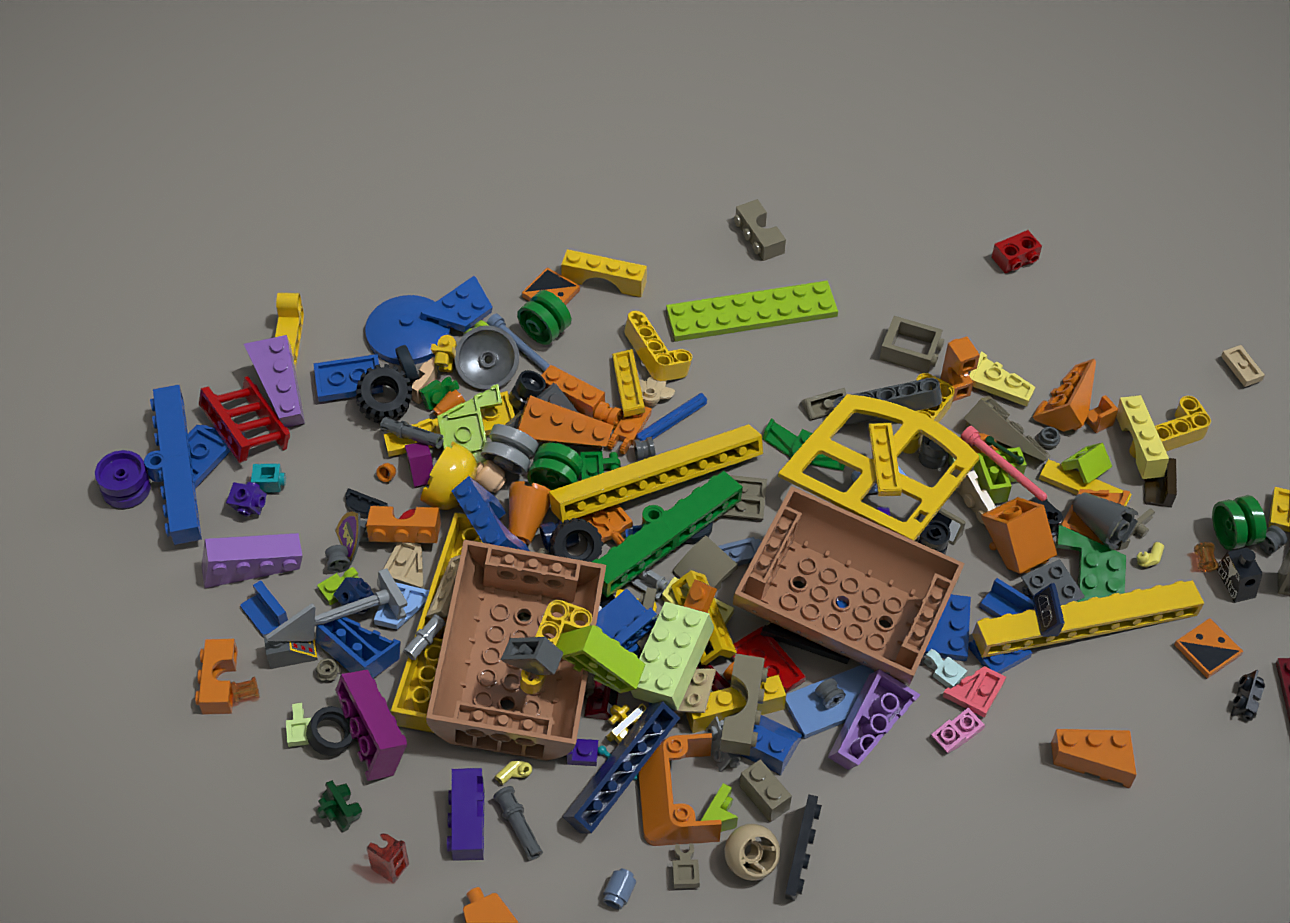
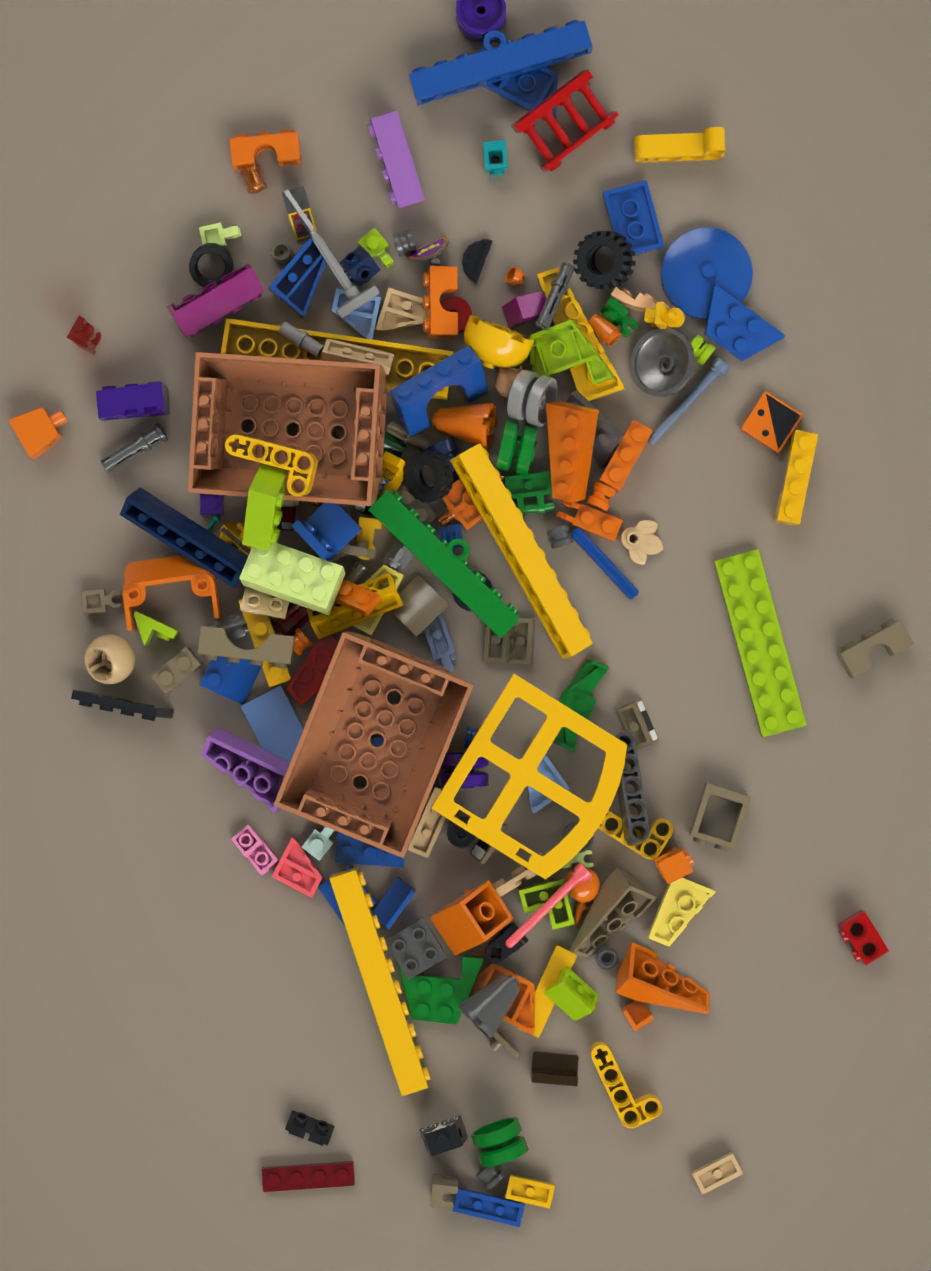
camera: 90 degrees right, 35 degrees up
(246, 498) = (466, 141): dark purple brick -> none
(264, 610) = (342, 181): blue panel -> none
(277, 373) = (616, 146): medium lavender wedge -> none
(335, 808) = (132, 290): dark green hips -> none
(407, 363) = (647, 279): black bush -> none
(513, 769) = (185, 433): light yellow arm -> none
(527, 384) = (619, 409): black wheel -> none
(533, 655) = (245, 443): dark grey slope -> none
(544, 317) = (717, 416): green wheel -> none
(619, 888) = (75, 543): sand blue brick -> none
(628, 383) = (644, 515): yellow tile -> none
(659, 362) = (696, 538): yellow beam -> none
(830, 693) = (278, 729): dark grey wheel -> none
(885, 459) = (533, 782): yellow tile -> none
(989, 440) = (579, 893): dark green hinge -> none
(1048, 611) = (369, 939): slope -> none
(1096, 752) = (235, 979): orange wedge -> none
(1150, 452) = (602, 1055): light yellow arch -> none
(1152, 558) = (462, 1051): light yellow arm -> none
(1206, 557) = (465, 1105): clear orange bush -> none
(1208, 648) = (362, 1097): orange tile -> none

